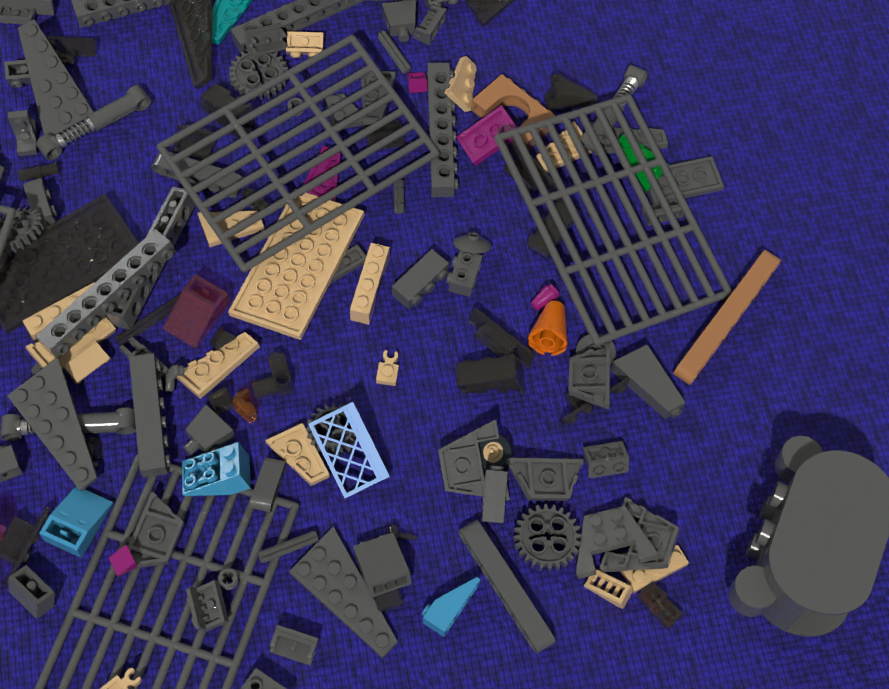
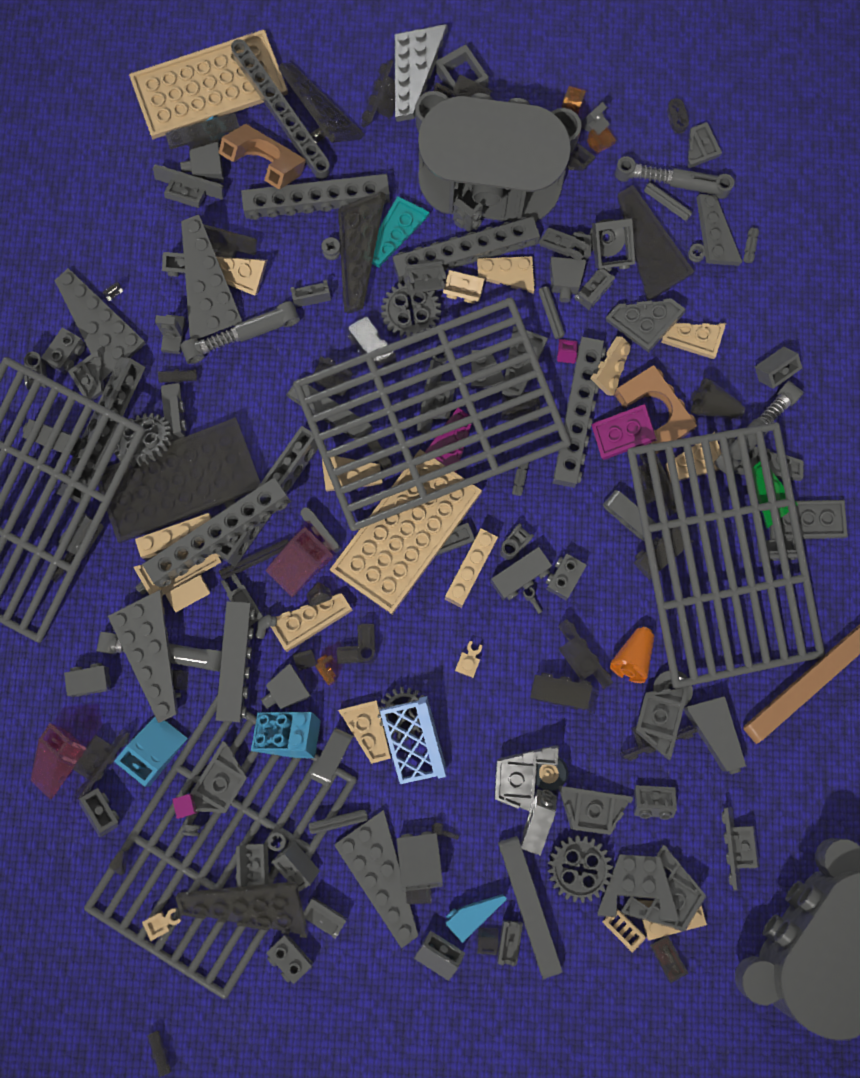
camera: 15 degrees right, 15 degrees up
(63, 634) = (119, 862): none -> clear smoke slope
(88, 70) = (243, 273): none -> tan wing
(134, 586) = (191, 830): none -> dark grey bush
(158, 78) = (311, 294): none -> dark grey hinge
(169, 36) = (333, 252): none -> dark grey wheel
(205, 273) = (319, 529): none -> dark grey hinge
(222, 644) = (253, 906): none -> clear smoke wing
(253, 598) = (296, 866): none -> dark grey hinge
(299, 140) = (436, 401): none -> dark grey bracket
(344, 25) = (509, 271): none -> tan wing
(409, 250) = (517, 539): none -> dark grey piece
(423, 652) = (439, 955): none -> dark grey brick
(435, 300) = (533, 601): none -> dark grey hand
(471, 632) = (487, 941): none -> clear smoke slope
(472, 243) = (580, 547): dark grey dish -> none
(485, 40) = (646, 320): none -> dark grey plate
(493, 625) = (509, 942): none -> dark grey hinge
(510, 207) = (625, 512): none -> dark grey beam
(538, 48) = (697, 339): none -> tan wing
(546, 294) = (637, 619): magenta cone -> none
(618, 56) = (778, 367): none -> dark grey brick
(703, 482) = (741, 847): none -> dark grey bracket

